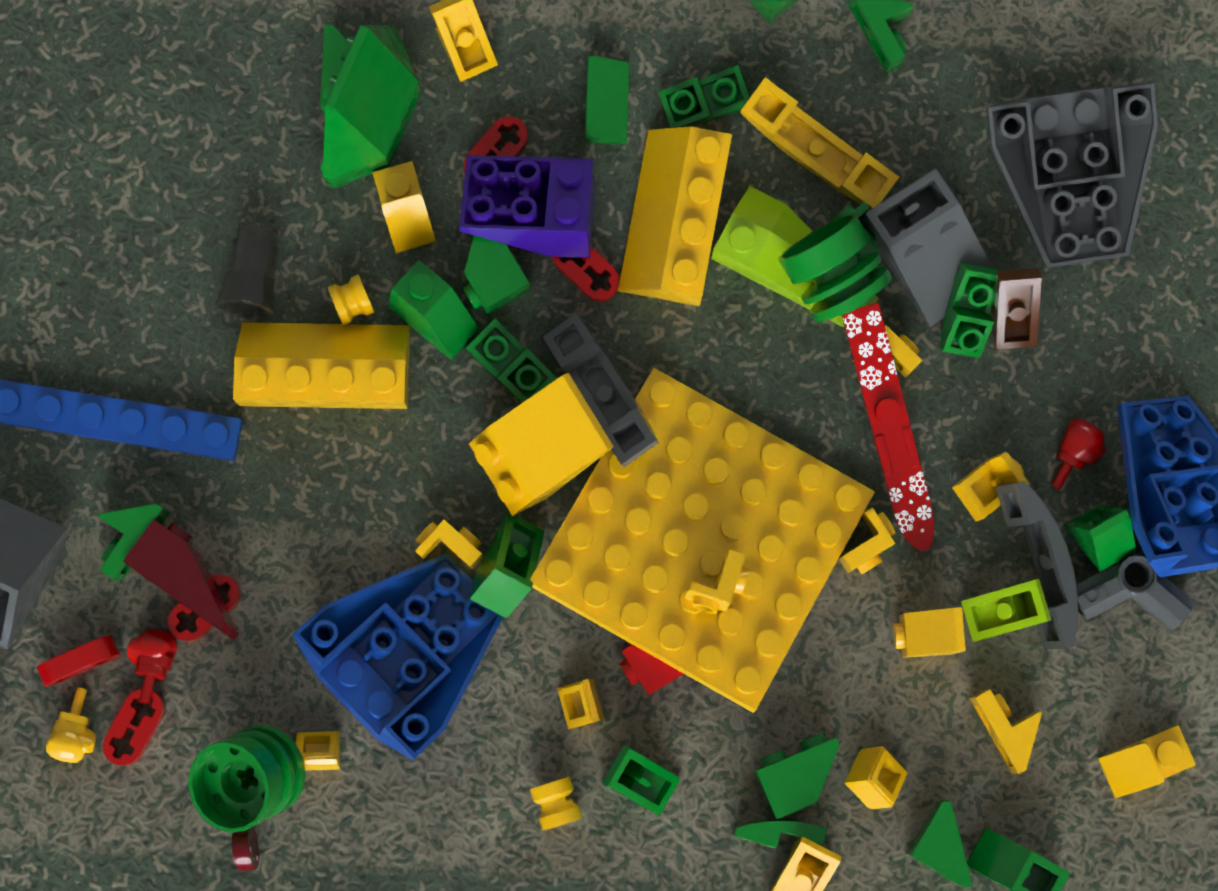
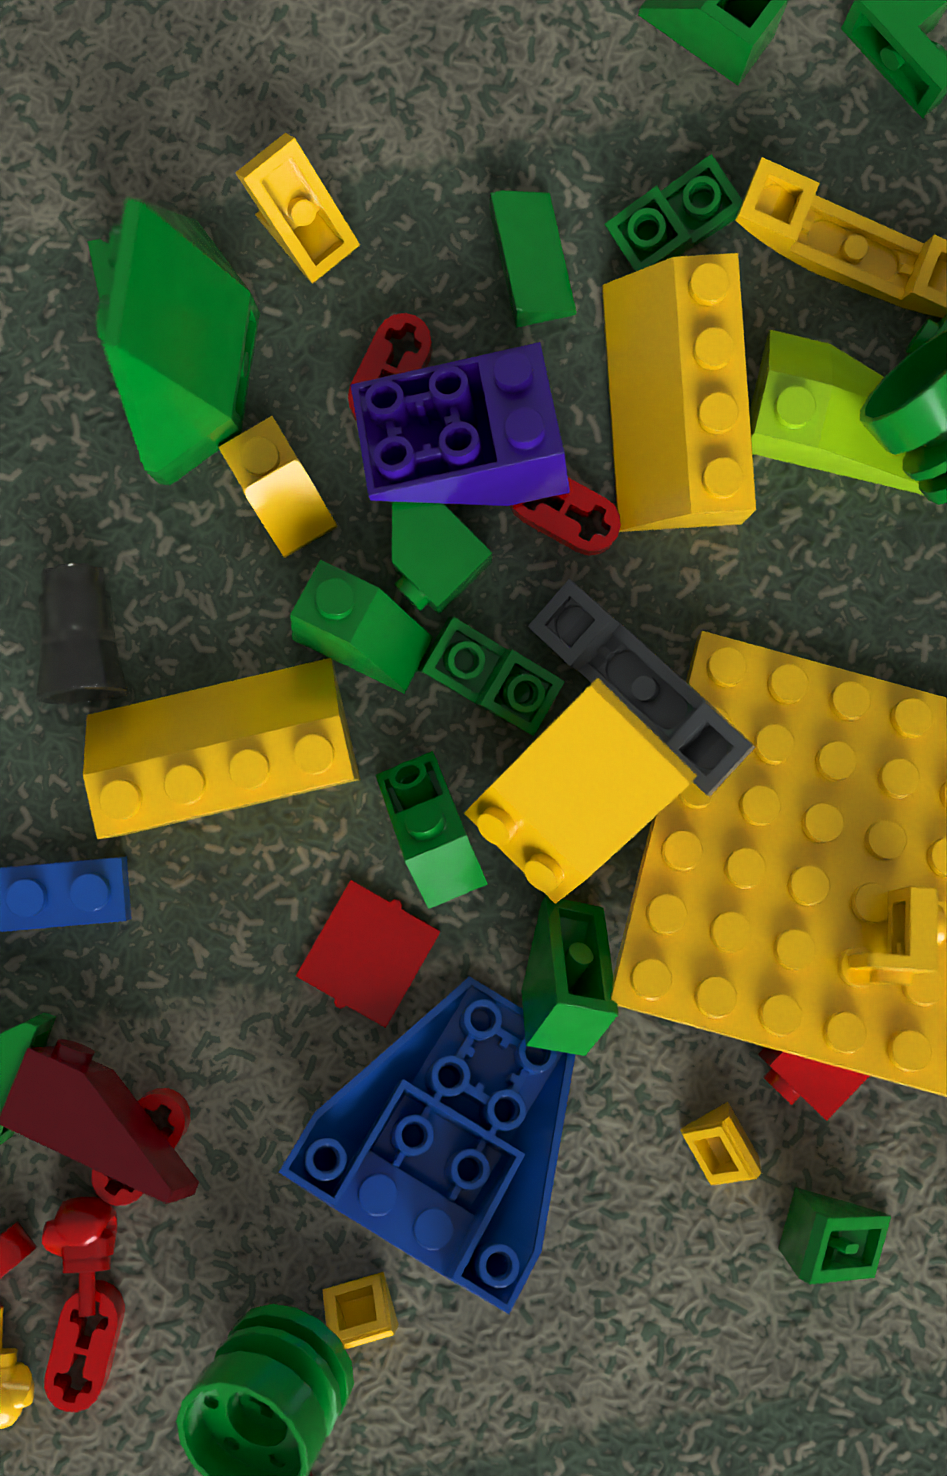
camera: 10 degrees left, 5 degrees up
(350, 300) = (235, 643): yellow wheel -> none
(383, 522) = (368, 953): none -> red piece
(444, 450) = (430, 830): none -> green slope
(462, 543) = (490, 961): yellow bracket -> none
(556, 803) = (730, 1312): yellow wheel -> none

